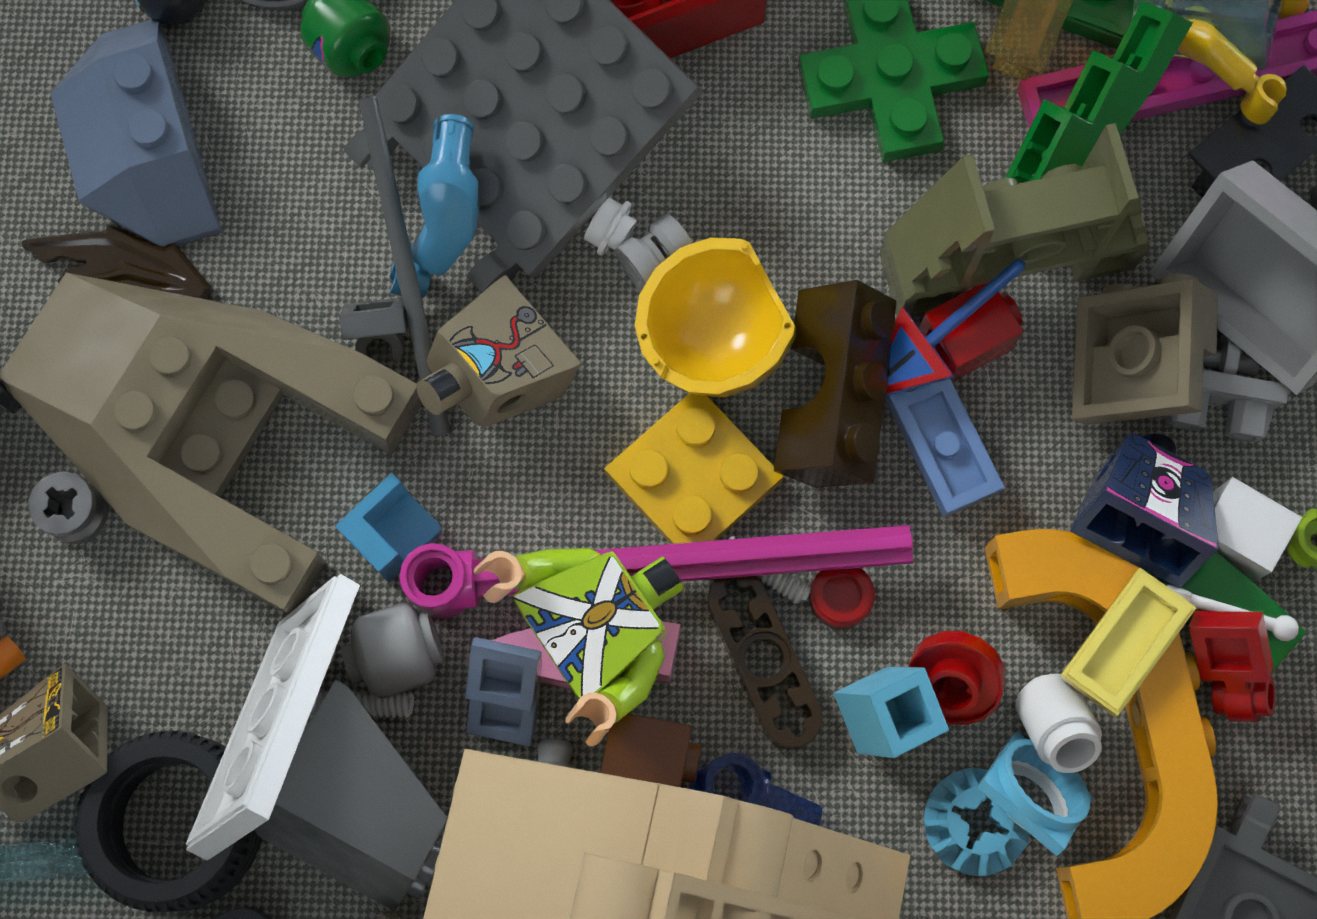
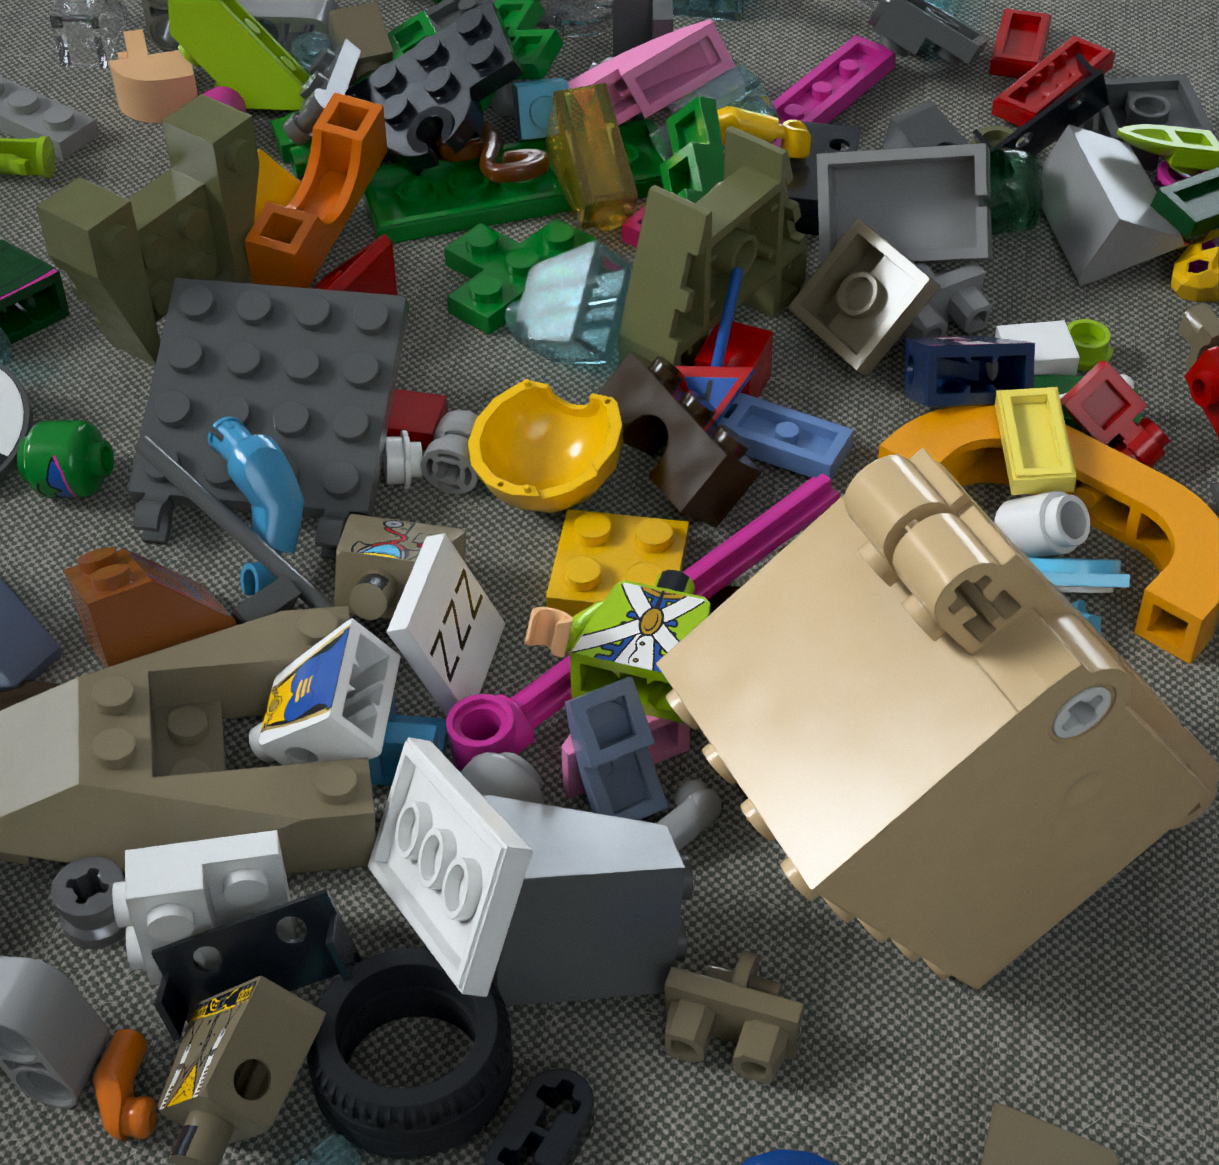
camera: 40 degrees left, 30 degrees down
(99, 593) = (195, 888): none -> white plate
(113, 670) = (255, 949): none -> black piece
(280, 258) = (139, 605): none -> dark orange slope
(331, 477) = (330, 701): none -> white torso
(482, 458) = (446, 624): none -> white tile
(663, 181) = (417, 414): none -> red tile
(867, 174) = (573, 306): none -> clear light blue torso

